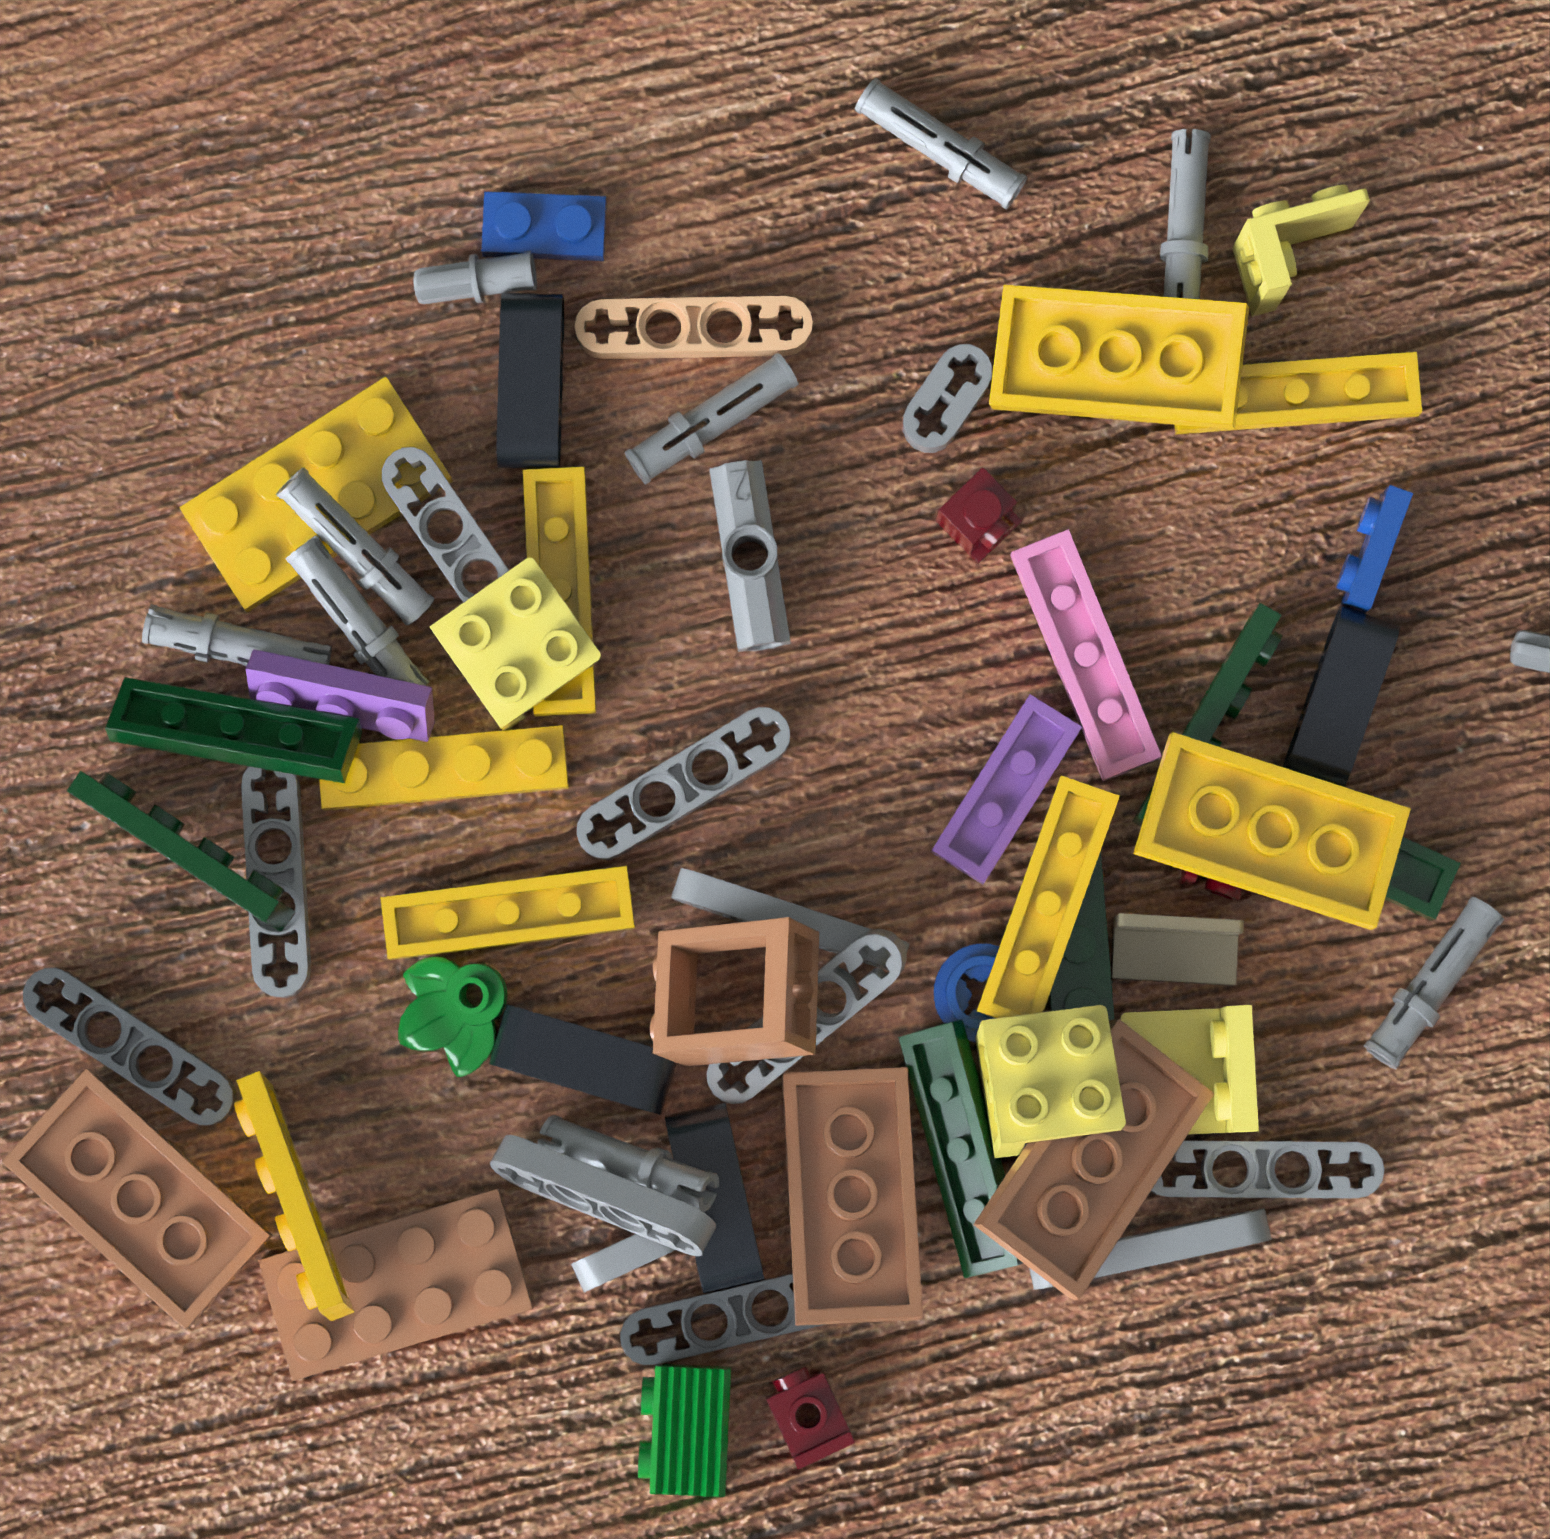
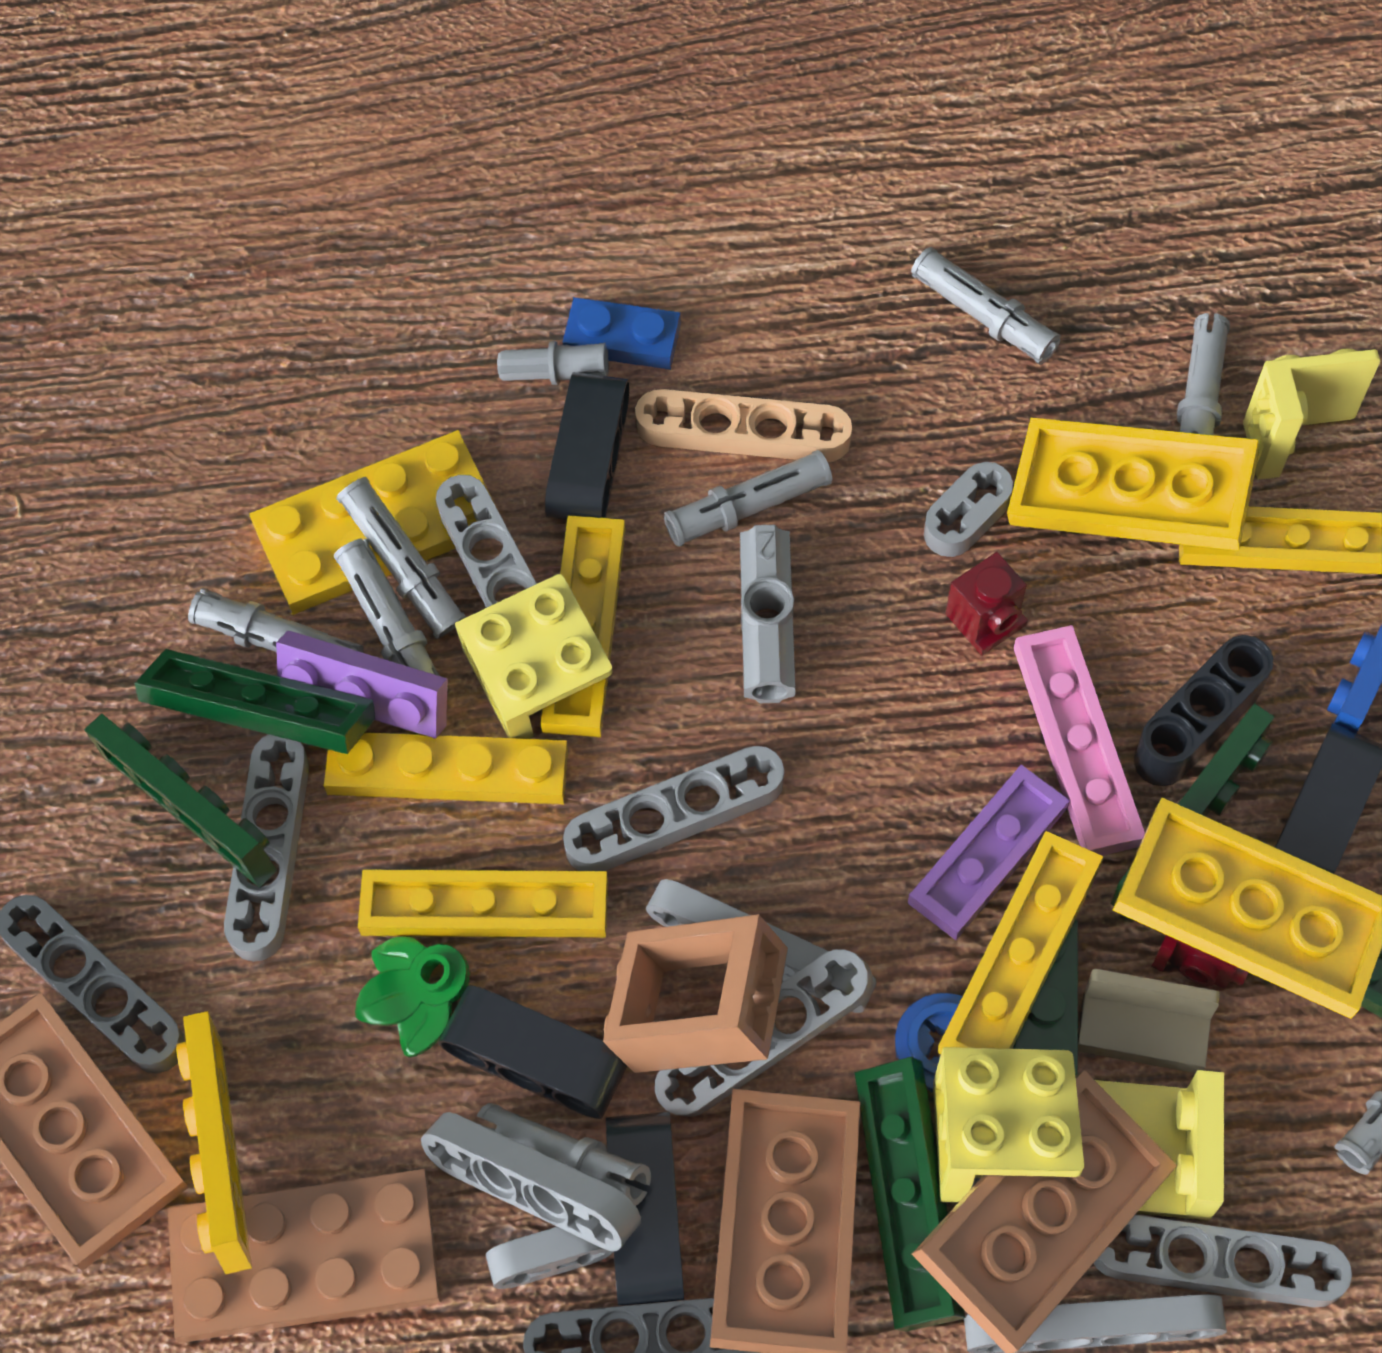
camera: 10 degrees right, 20 degrees down
(1223, 580) = (1210, 686): none -> black beam

